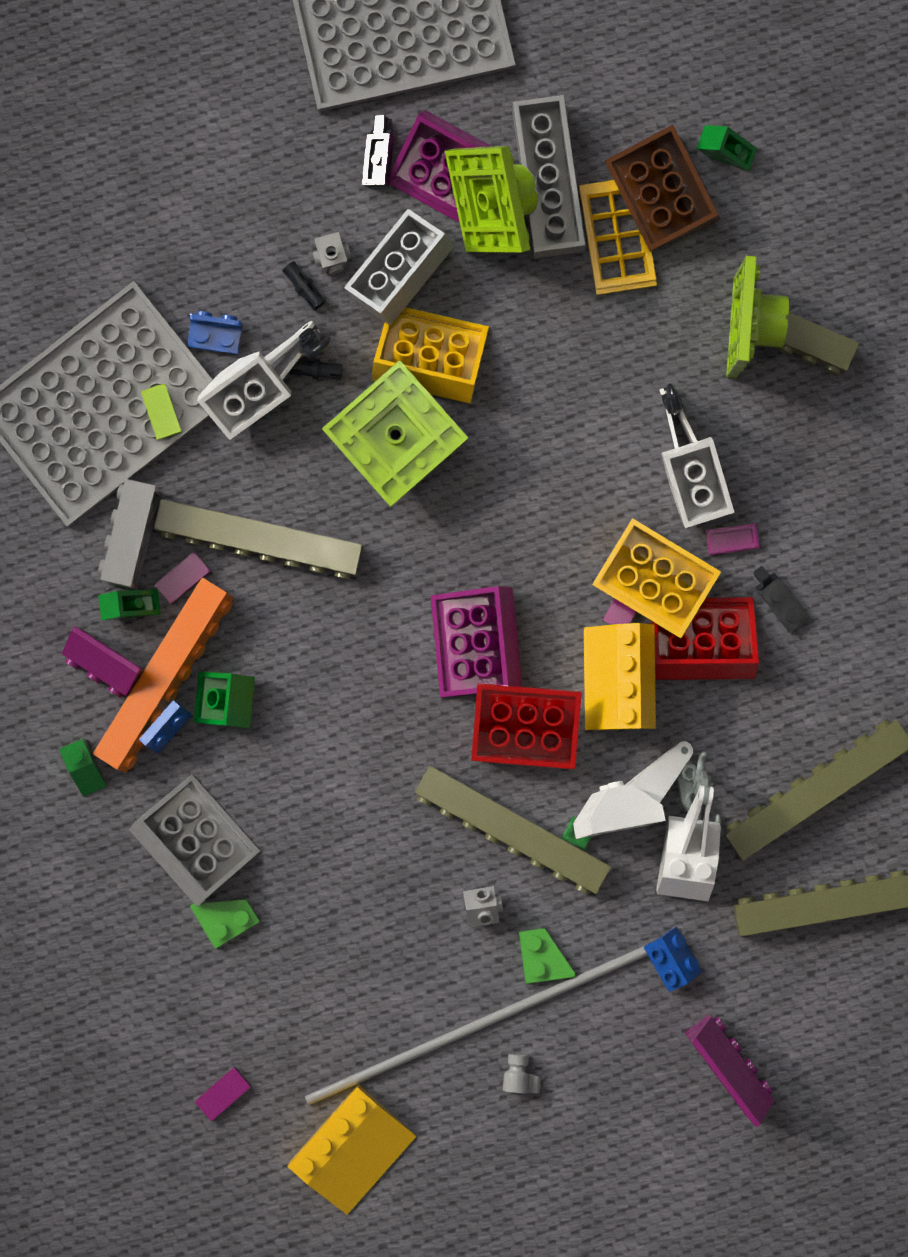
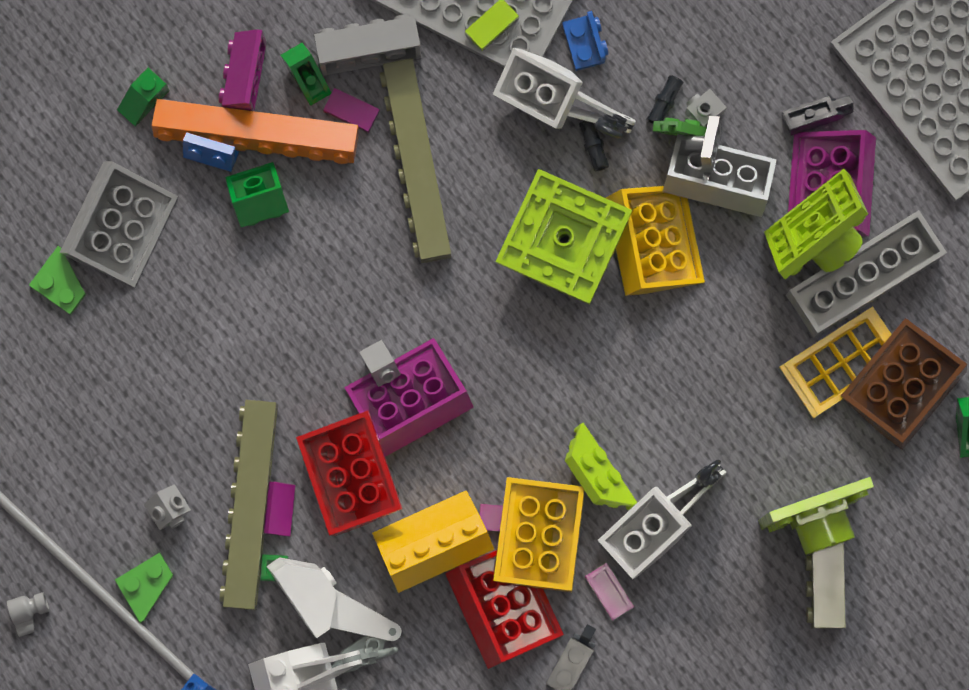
camera: 70 degrees right, 5 degrees down
(344, 274) = (674, 126): none -> bright green wing
(367, 265) = (706, 144): none -> flat silver tile
(434, 654) = (380, 363): none -> light grey brick
(527, 804) = (279, 509): none -> magenta tile
(621, 502) = (596, 472): none -> lime wing

